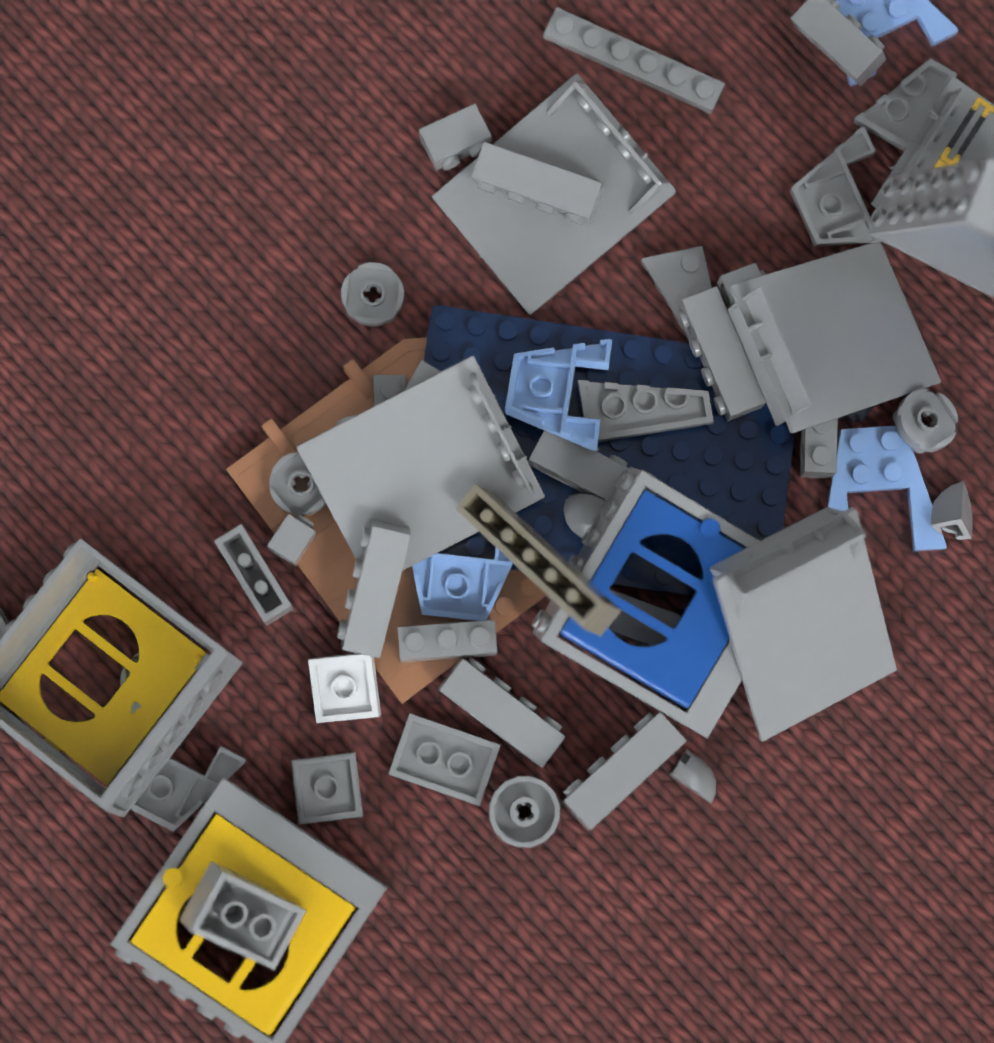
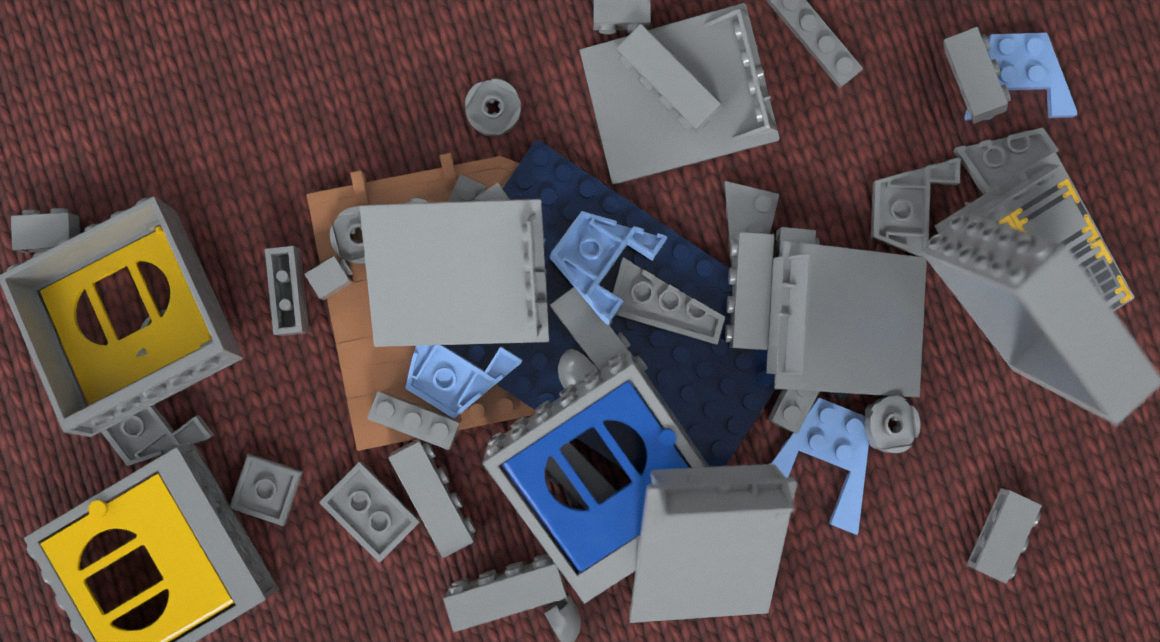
camera: 25 degrees right, 5 degrees up
(242, 915) = (134, 568): light grey slope -> none
(344, 687) = (317, 416): white plate -> none
(375, 588) = (374, 352): light grey brick -> none
(538, 560) = (511, 398): dark tan brick -> none
(543, 811) = (399, 597): light grey wheel -> none
(953, 512) = (877, 508): light grey brick -> none

